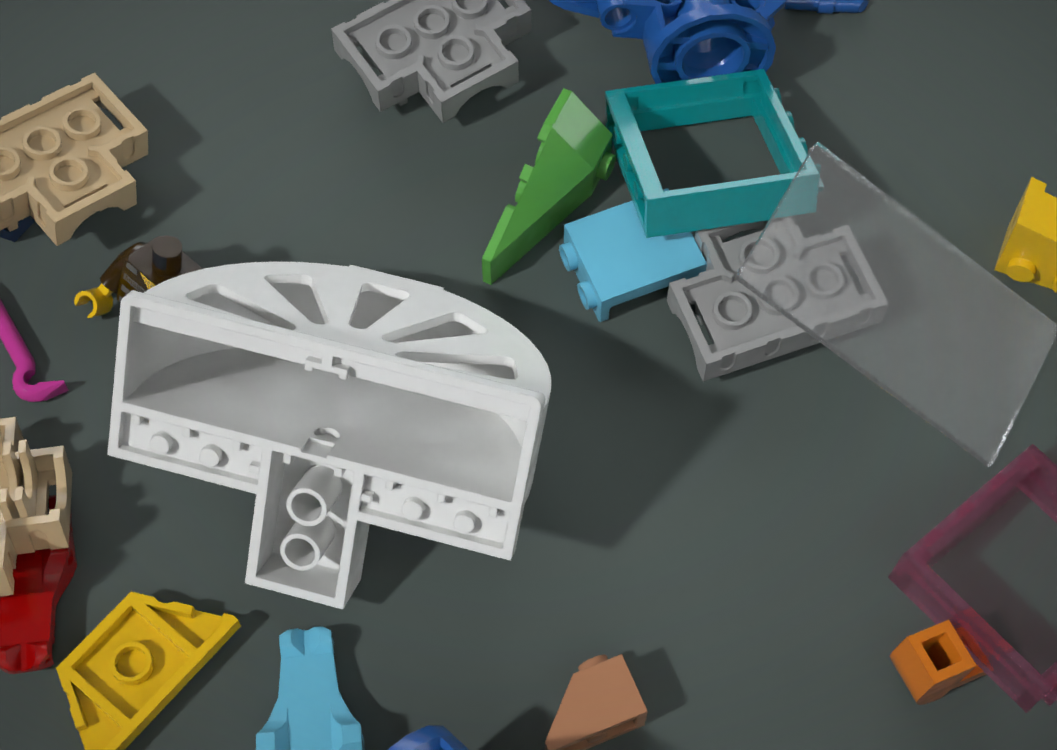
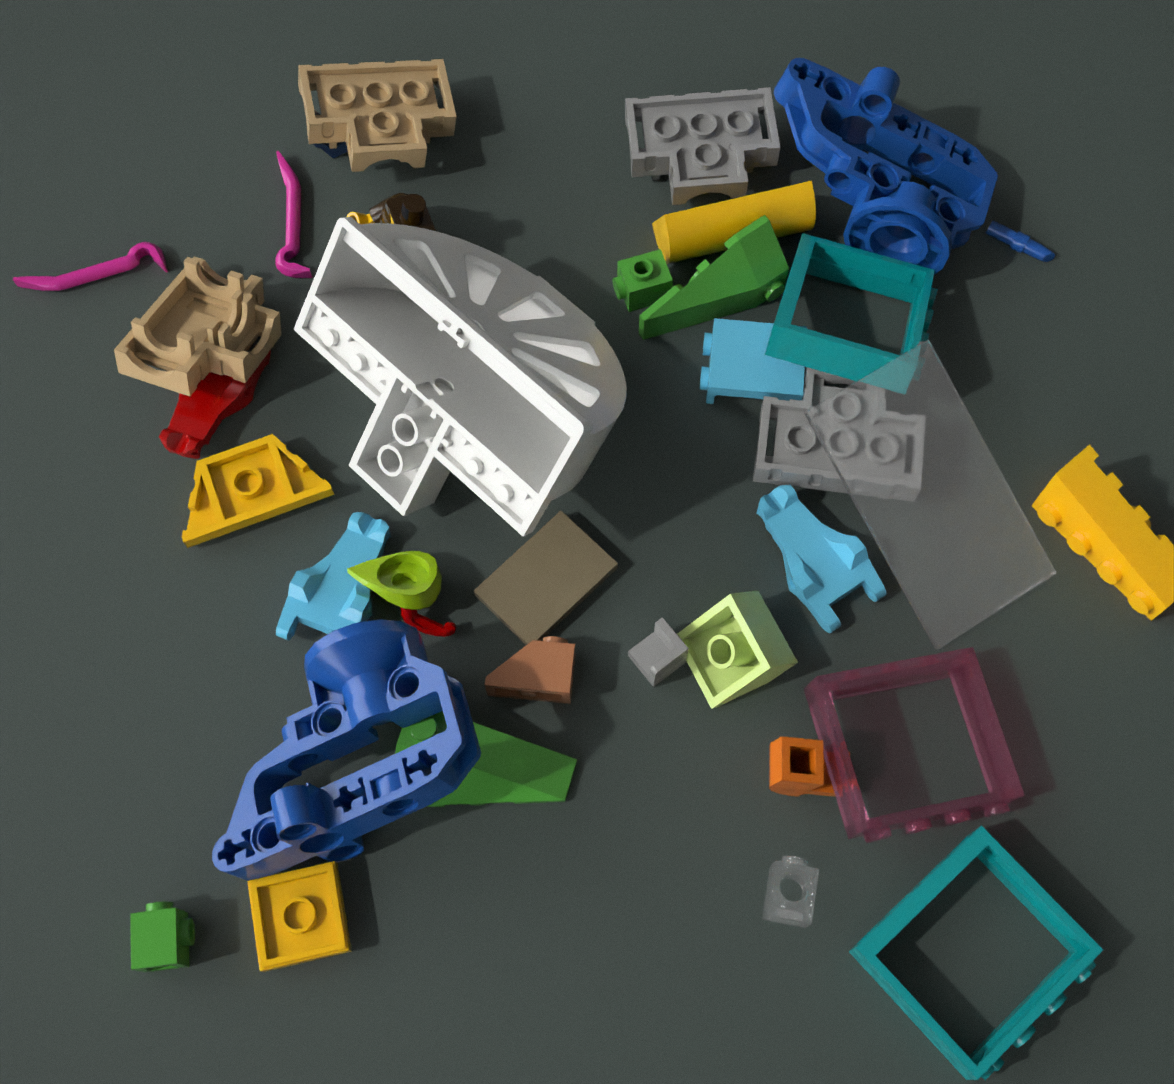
camera: 30 degrees right, 5 degrees up
(389, 681) = (406, 581): none -> lime piece
(459, 219) = (642, 280): none -> bright green brick
(518, 116) = (708, 227): none -> yellow brick
(540, 603) = (545, 579): none -> dark tan tile
(712, 617) = (659, 653): none -> light grey panel
(788, 571) = (736, 648): none -> yellowish green slope
(818, 432) = (817, 560): none -> medium azure animal

